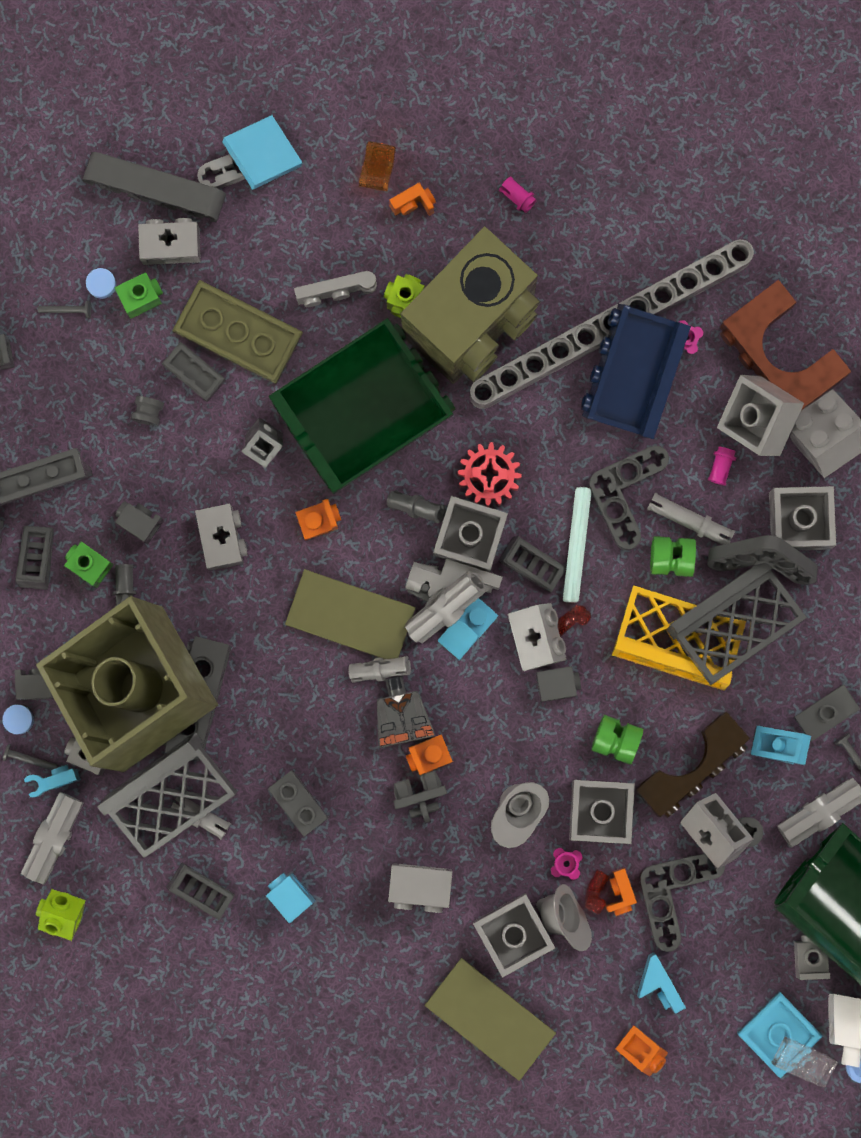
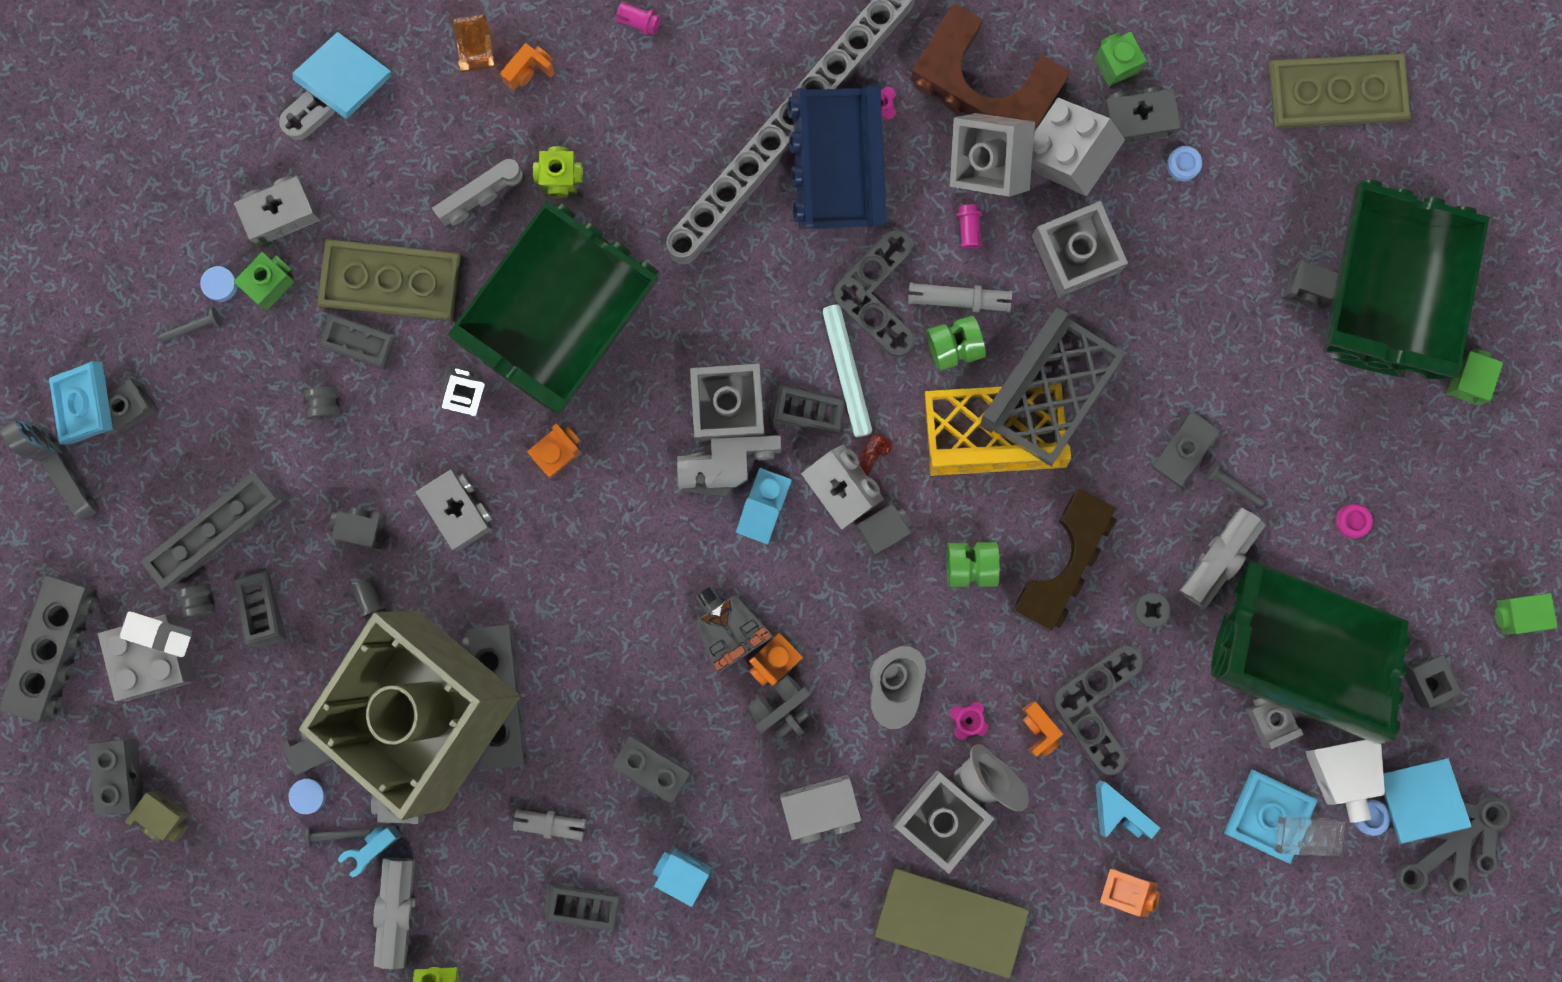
camera: 25 degrees left, 0 degrees up
(87, 564) = (319, 595): bright green brick -> none
(154, 185) = (237, 155): dark grey beam -> none
(158, 772) = (483, 795): dark grey fence -> none
(349, 615) = (630, 542): olive tile -> none
(379, 669) = (684, 587): light grey pin -> none
(416, 506) = (656, 395): dark grey pin -> none
(445, 607) = (730, 491): light grey piece -> none
(470, 306) = (632, 151): olive brick -> none
(503, 474) = (738, 326): coral gear -> none
(593, 891) = (1010, 738): clear red arm -> none
(601, 811) = (986, 649): light grey brick -> none
(716, 830) = (1118, 621): light grey brick -> none
(767, 550) = (1053, 296): dark grey beam -> none
(781, 745) = (1151, 502): medium azure slope -> none

